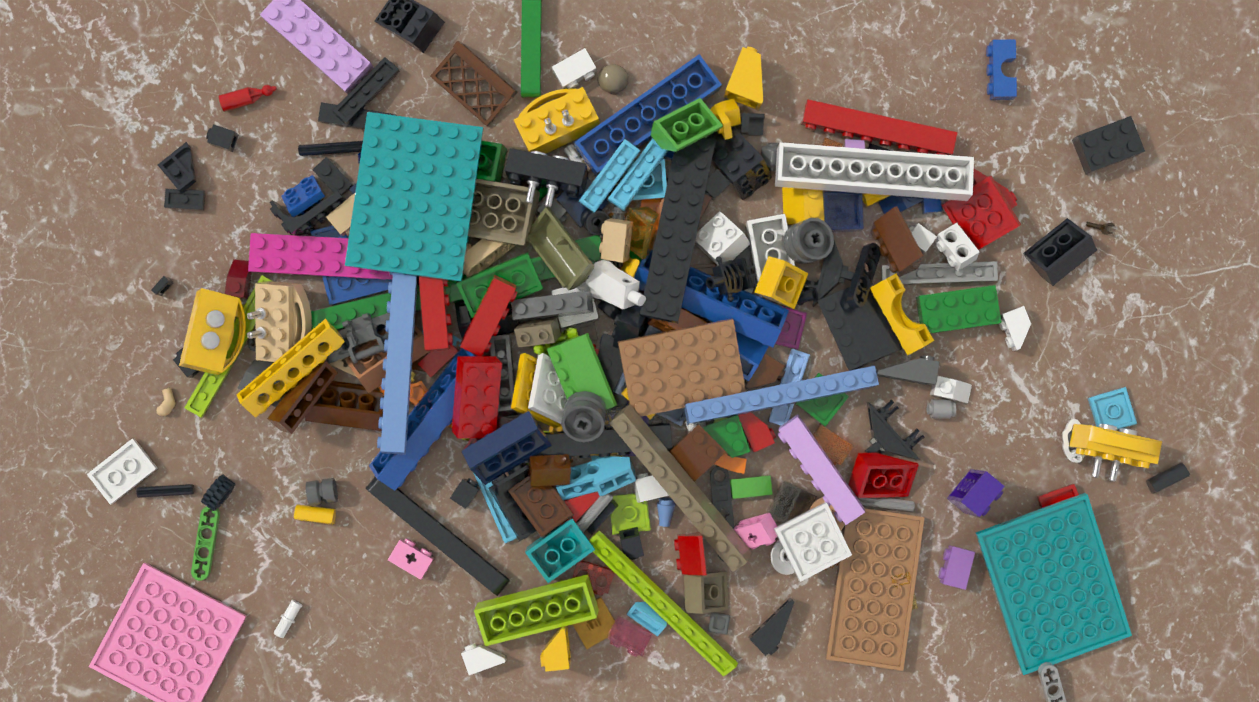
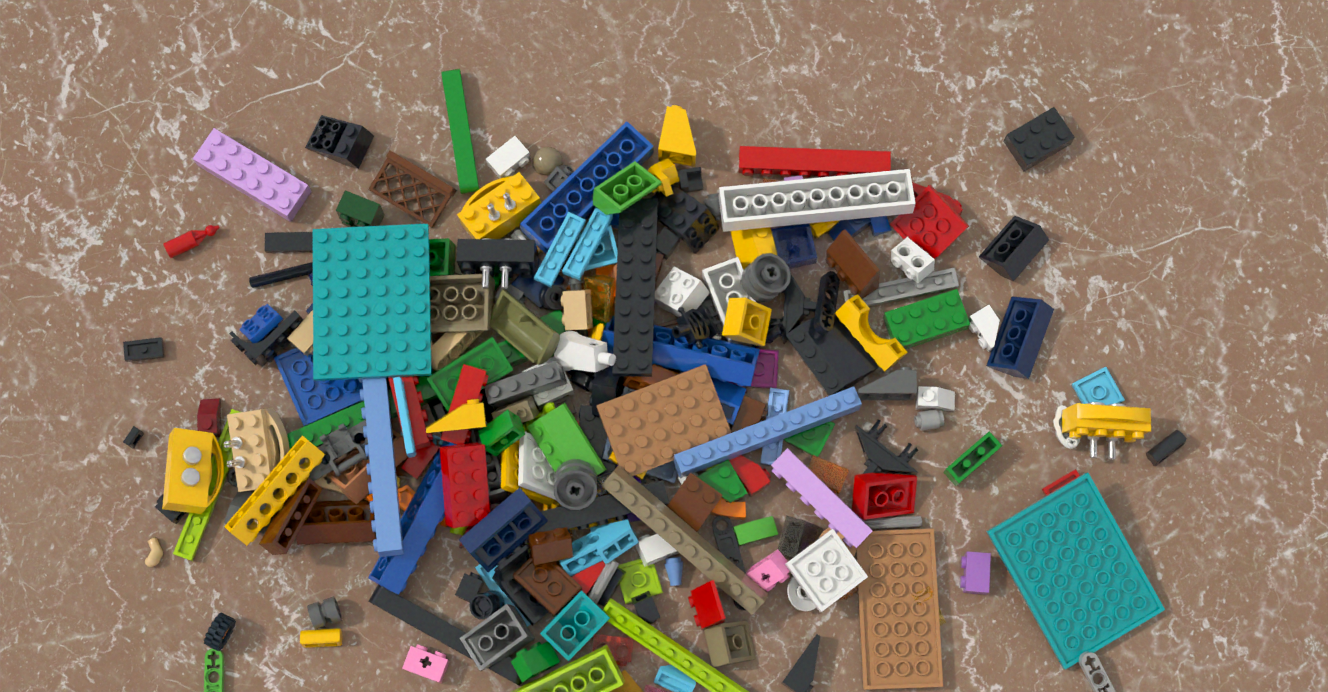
camera: 10 degrees left, 10 degrees down
(122, 471) = (118, 629): white plate -> none
(170, 490) = (165, 641): black axle -> none
(180, 168) = (134, 319): black wing -> none
(222, 138) = (172, 283): black brick -> none
(304, 256) = (275, 383): dark pink plate -> none
(332, 176) = (286, 301): black plate -> none
(365, 91) = (307, 213): black plate -> none
(417, 99) = (359, 211): none -> dark green brick
(428, 337) = (404, 417): none -> medium azure tile
(478, 513) = (486, 604): none -> black wheel
(483, 547) = (497, 637): none -> dark grey slope
(485, 331) = (464, 417): none -> yellow slope
(515, 576) = (534, 661): none -> green brick
(520, 352) = (501, 432): none -> green brick
(621, 98) = (558, 176): none -> dark grey bracket
(719, 623) = (748, 673): dark grey tile -> none
(922, 236) = (878, 256): white brick -> none
(976, 456) = (972, 458): none -> green brick
(976, 493) = (978, 491): dark purple brick -> none
(1001, 86) = (923, 102): blue arch -> none
(1048, 342) = (1020, 336): none -> dark blue slope
(1103, 228) = (1051, 218): dark brown hand -> none

